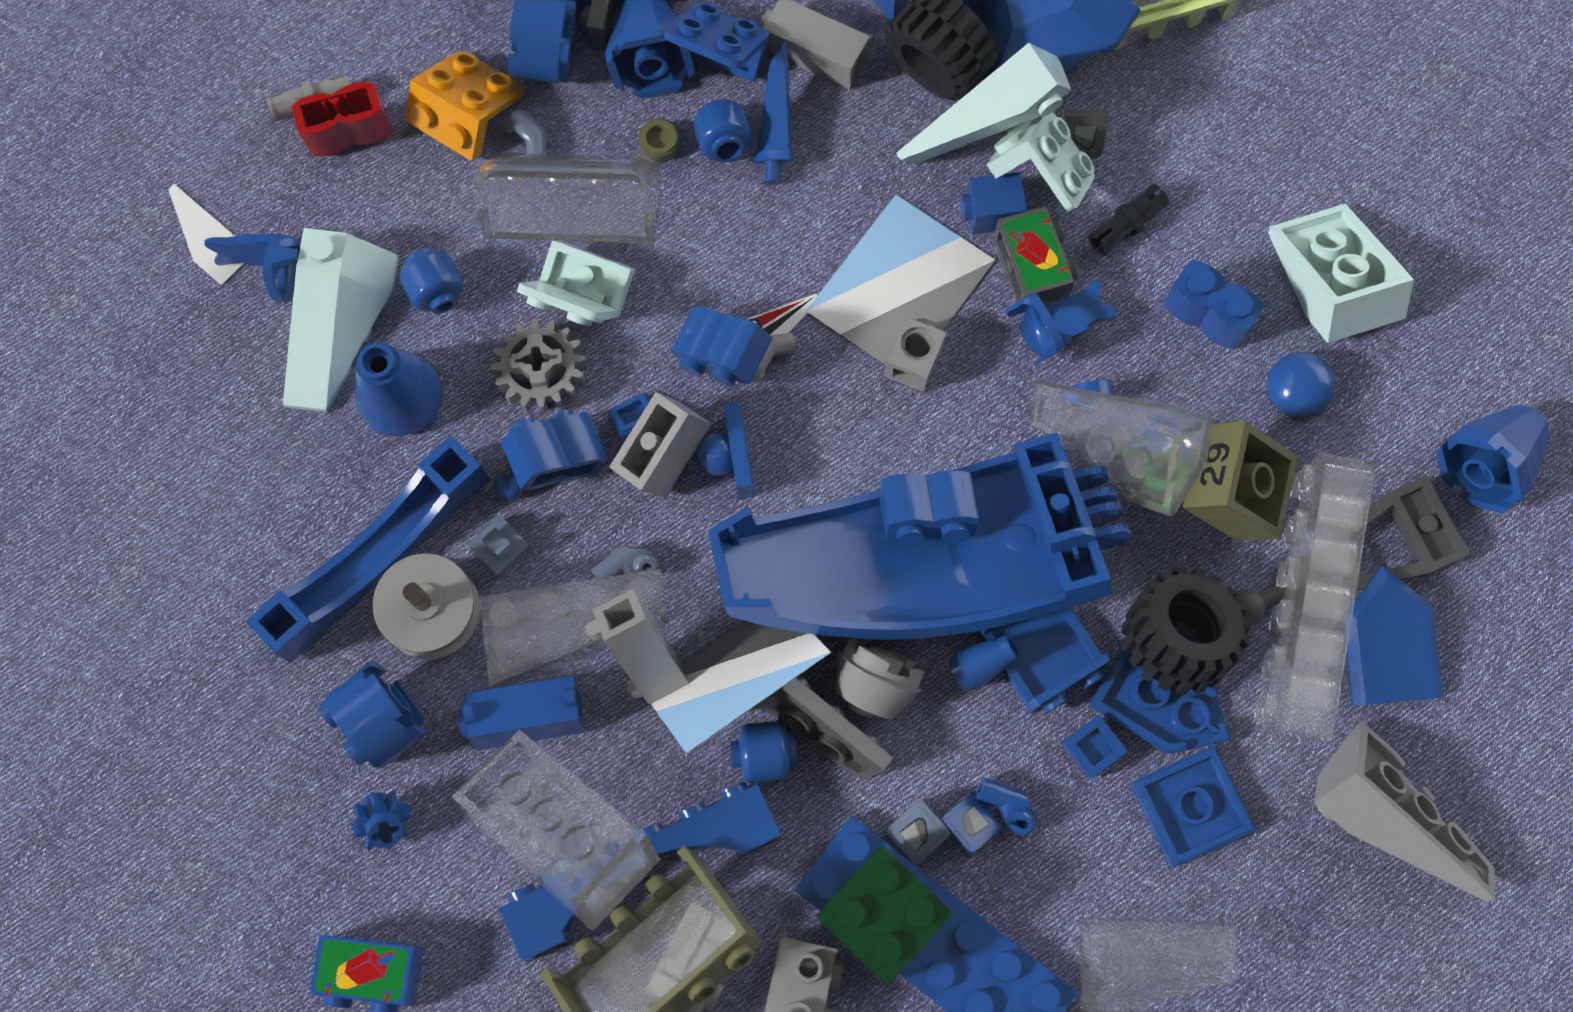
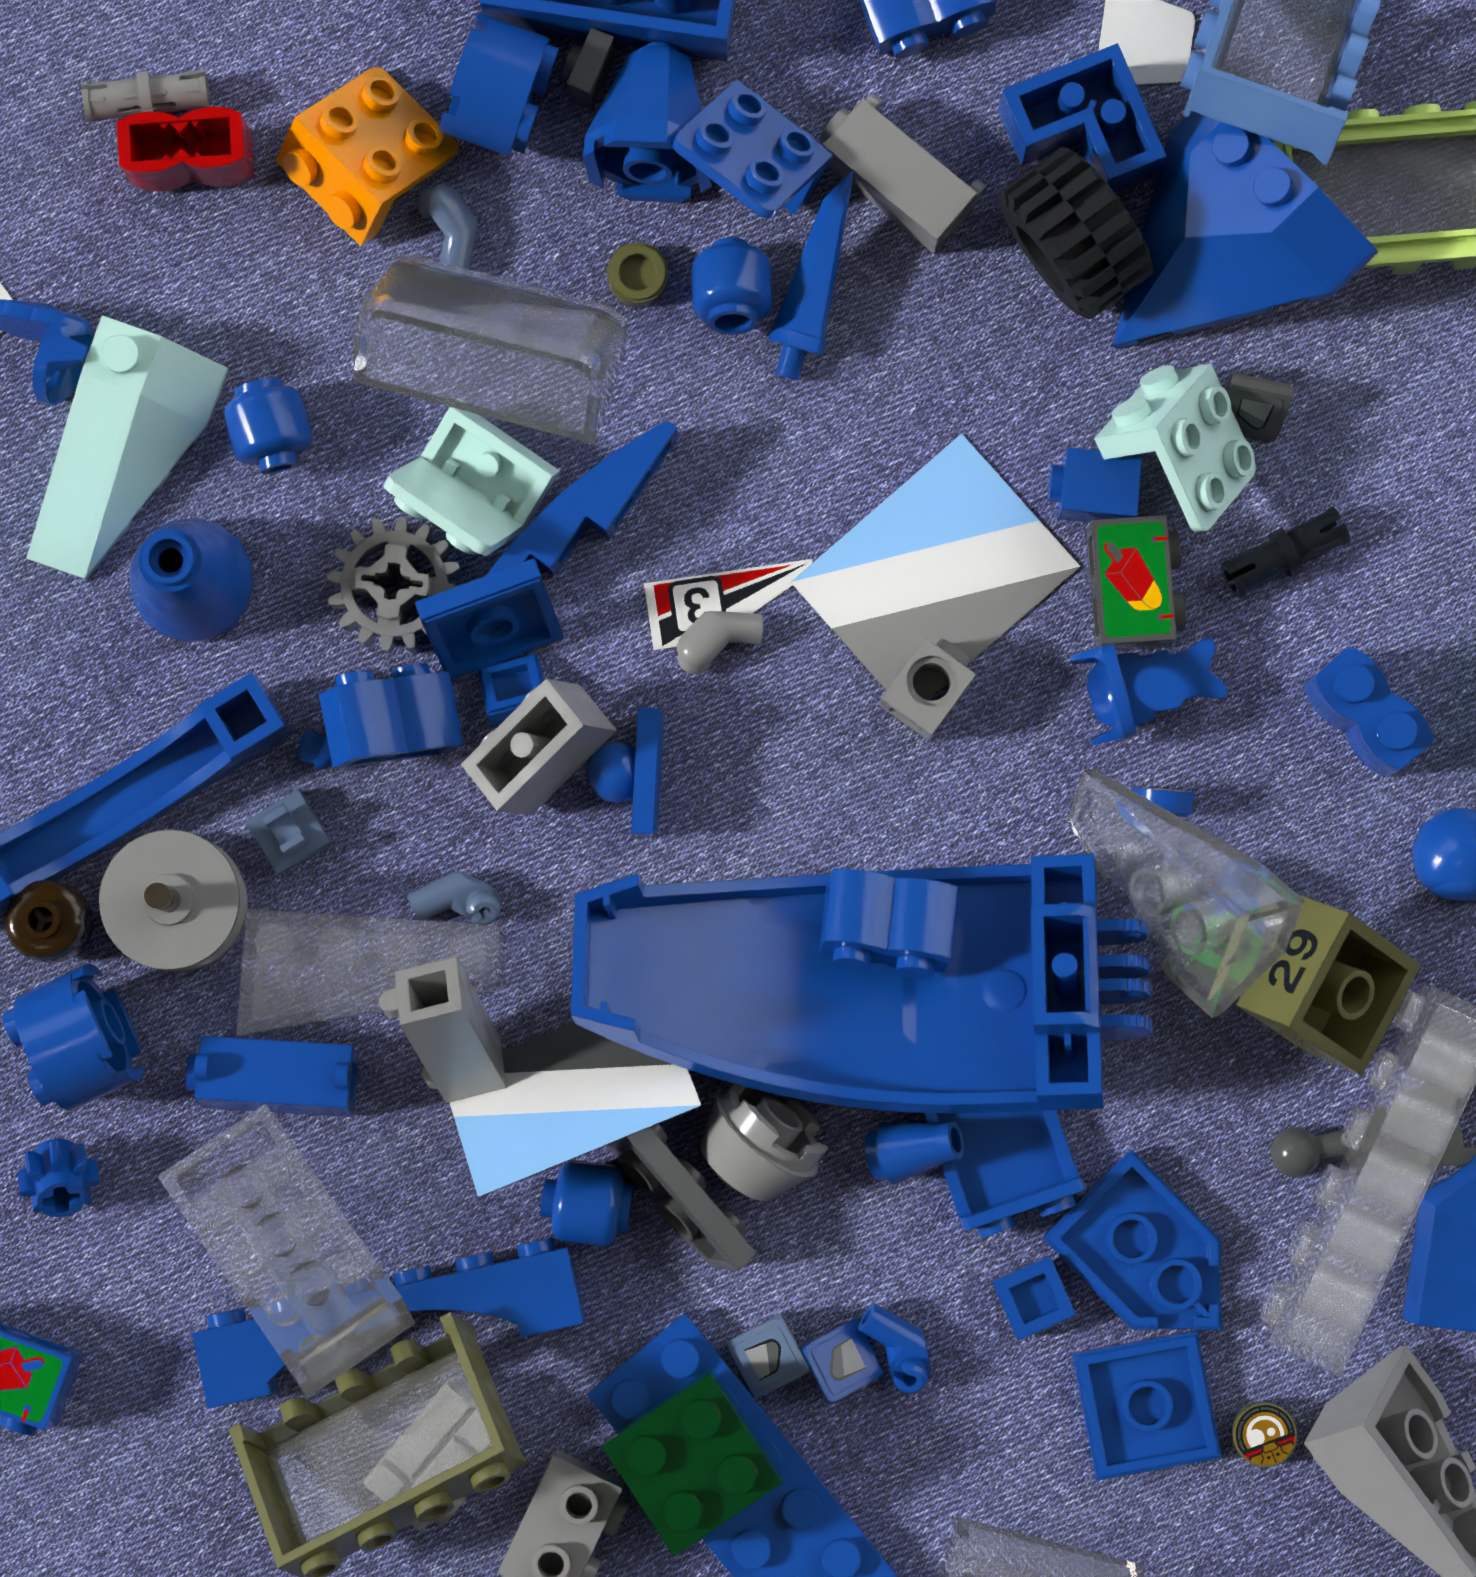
camera: 15 degrees right, 10 degrees up
(341, 640) = (70, 920): none -> dark brown head
(608, 368) = (490, 619): none -> blue tile
(659, 285) = (594, 500): none -> blue slope
(721, 346) = (655, 618): blue brick -> none
(1013, 94) = (1160, 347): light aqua wedge -> none
(1202, 606) = (1232, 1144): black tyre -> none
(1280, 807) = (1263, 1433): none -> tile

